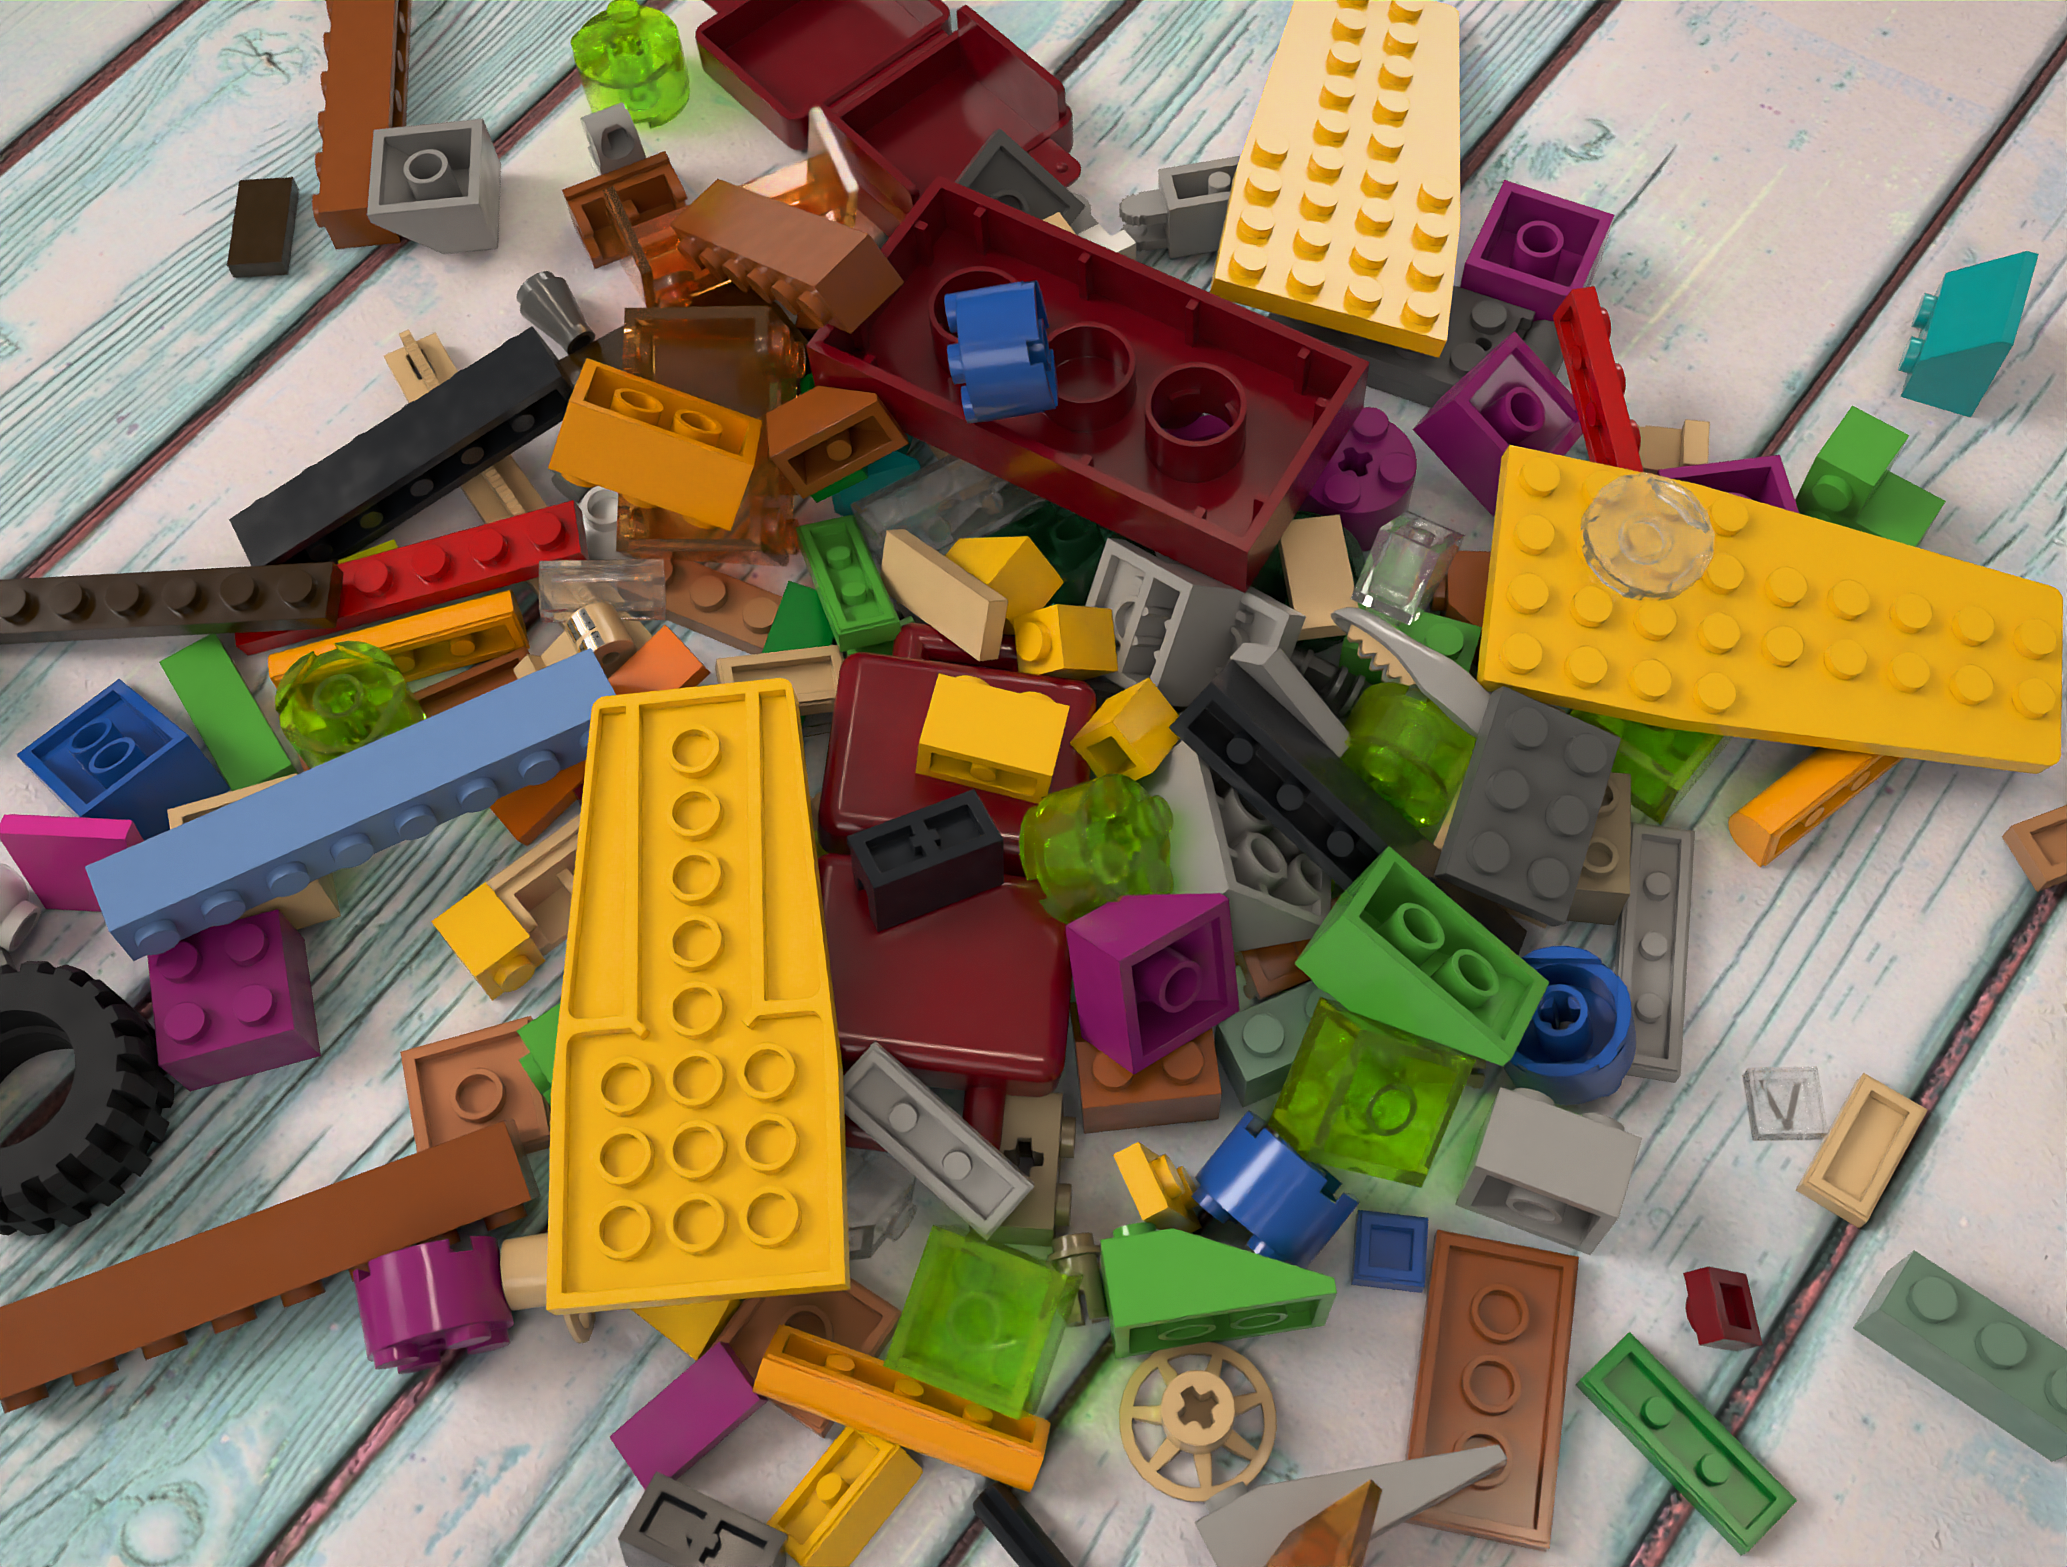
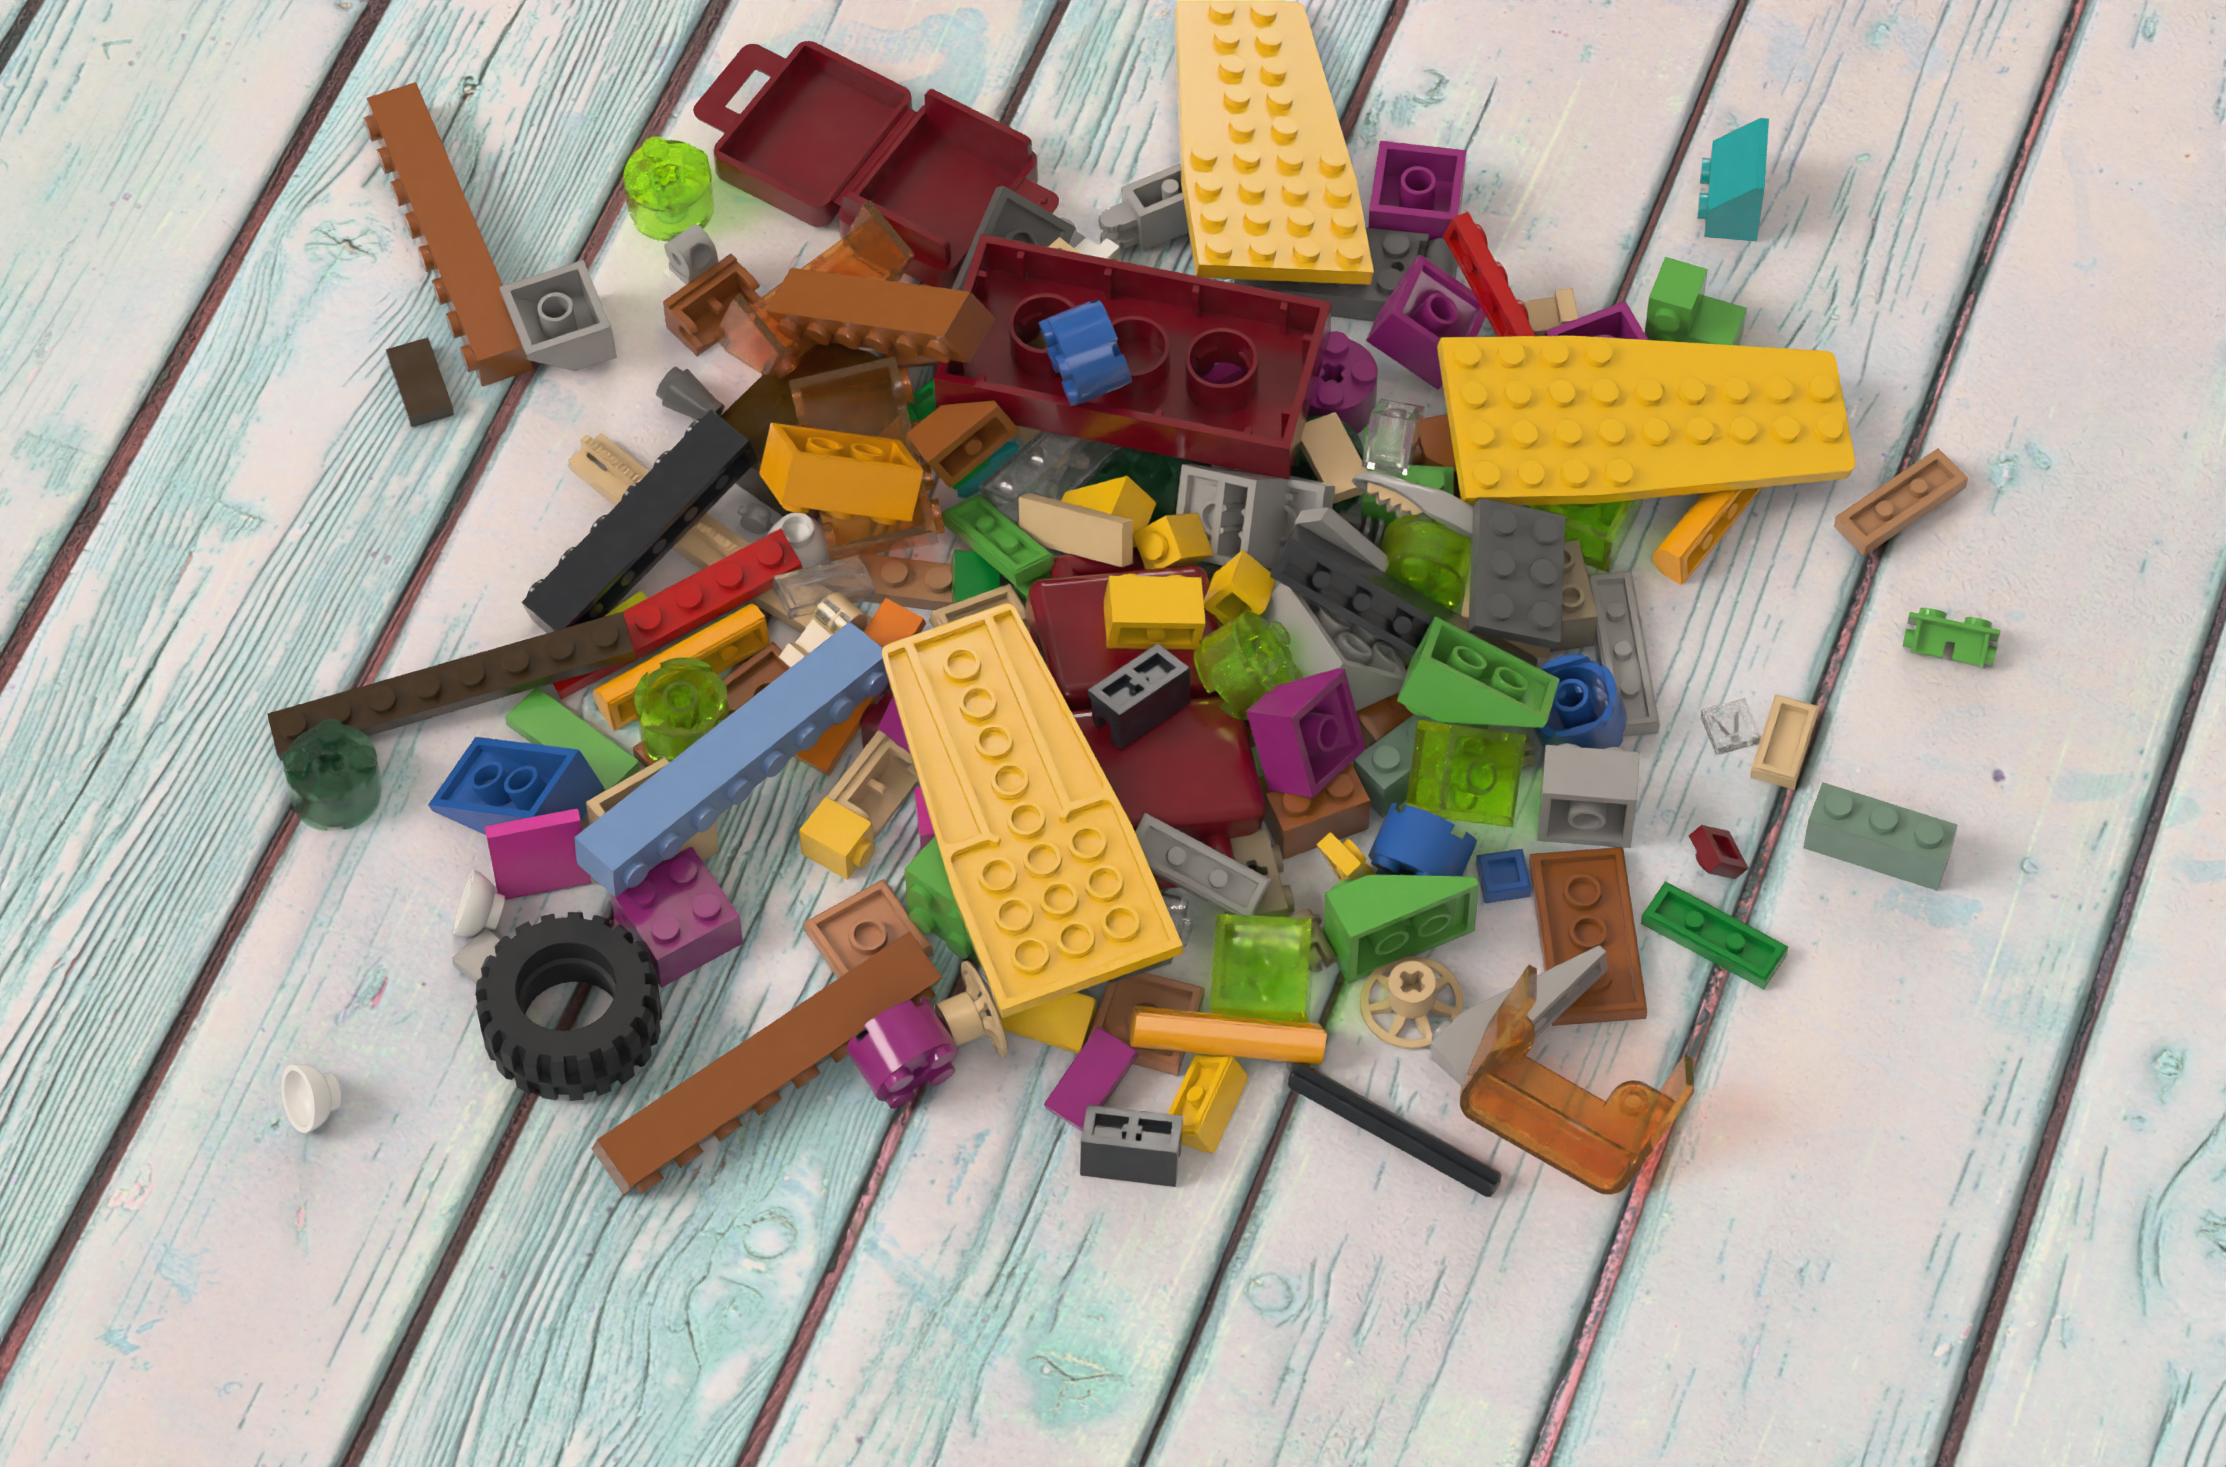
camera: 20 degrees left, 5 degrees down
(1647, 536) = (1548, 378): clear tile -> none

